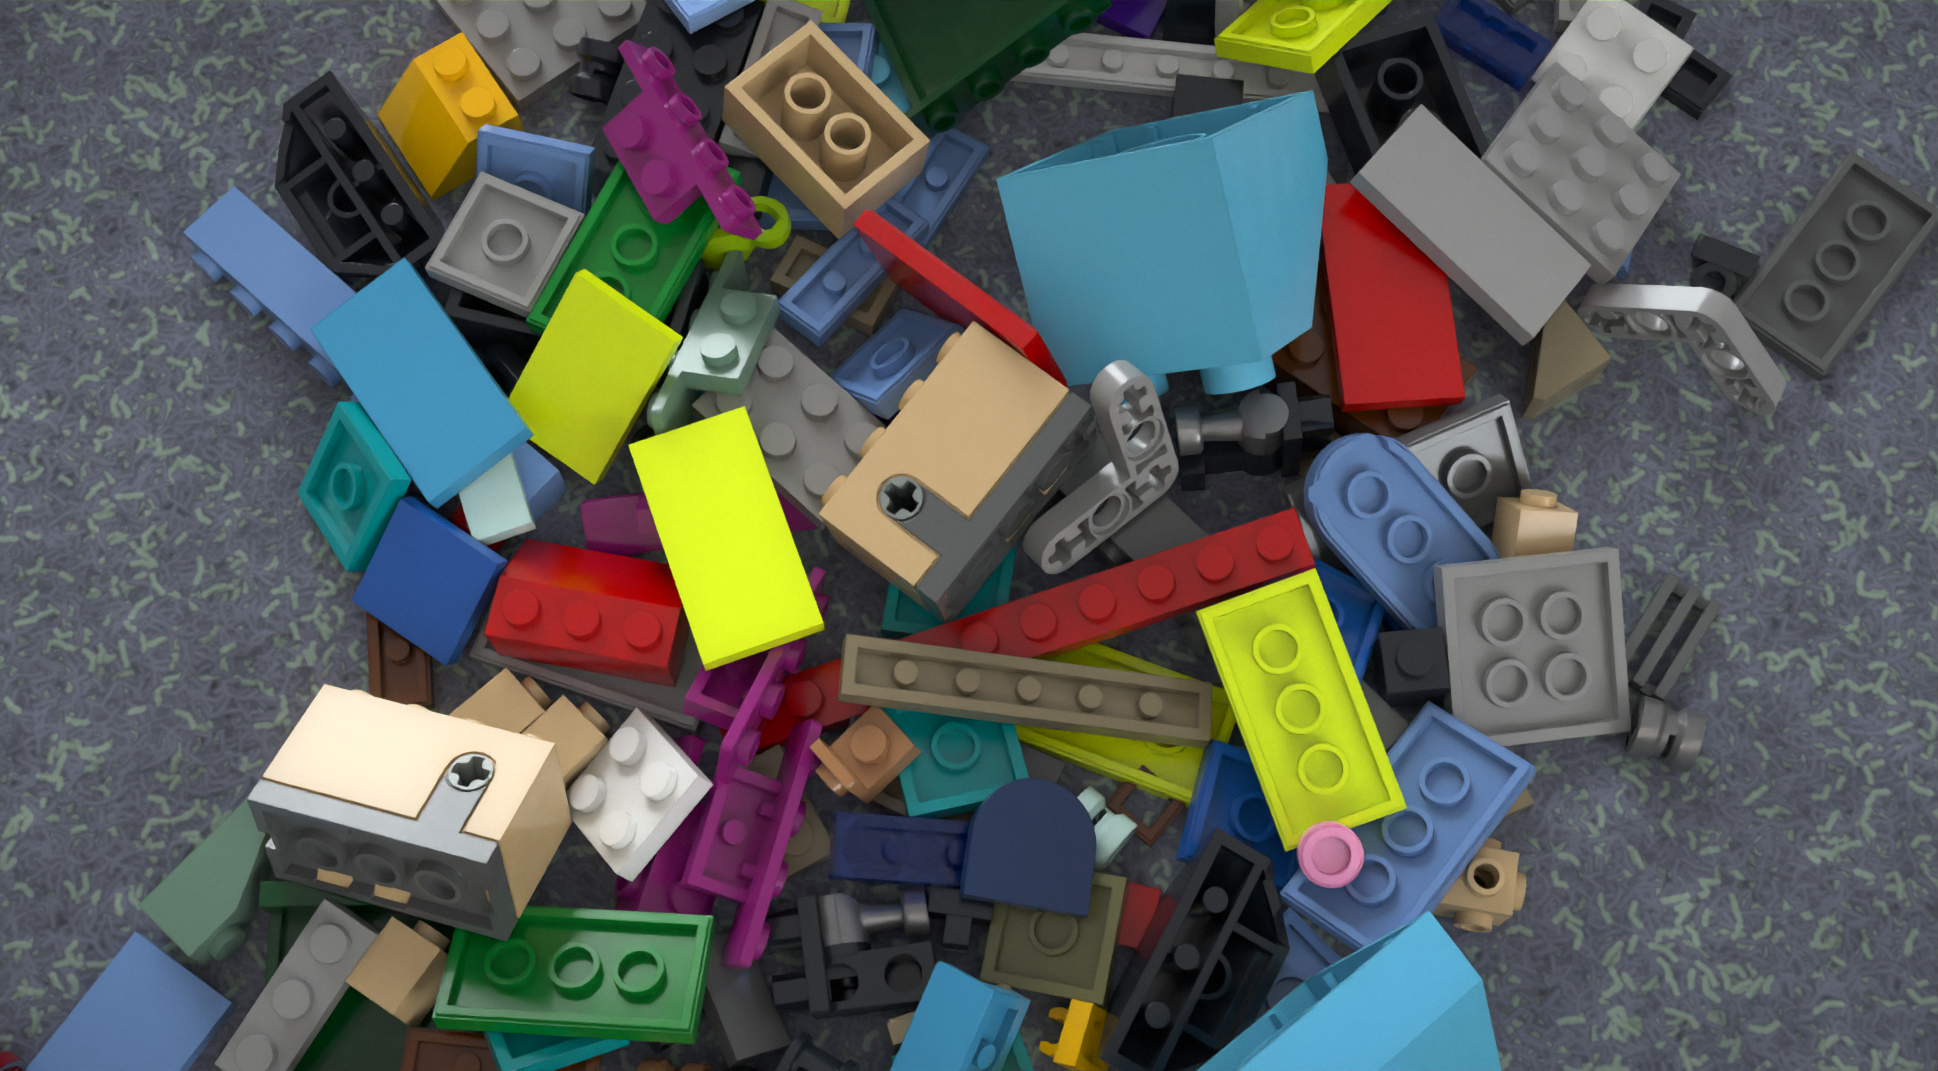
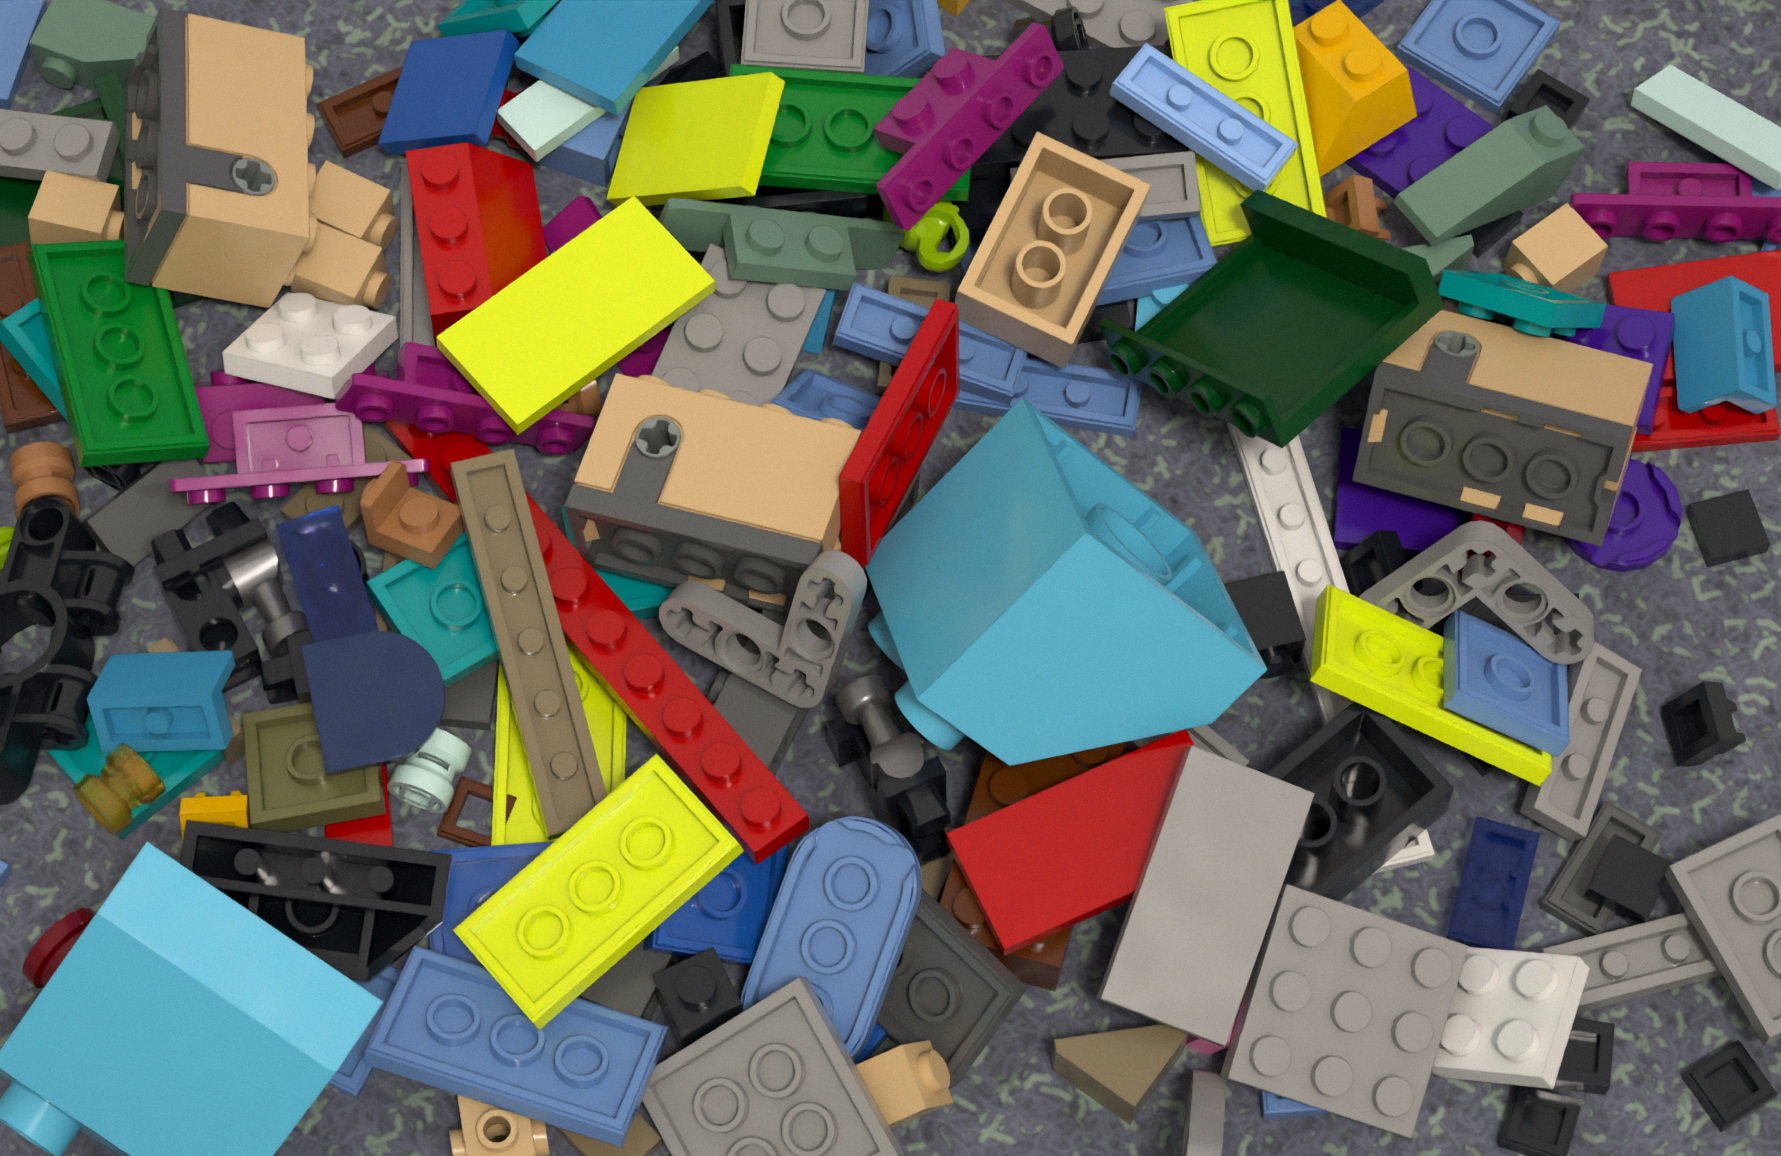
camera: 65 degrees right, 5 degrees down
(1330, 854) = (460, 965): bright pink tile -> none

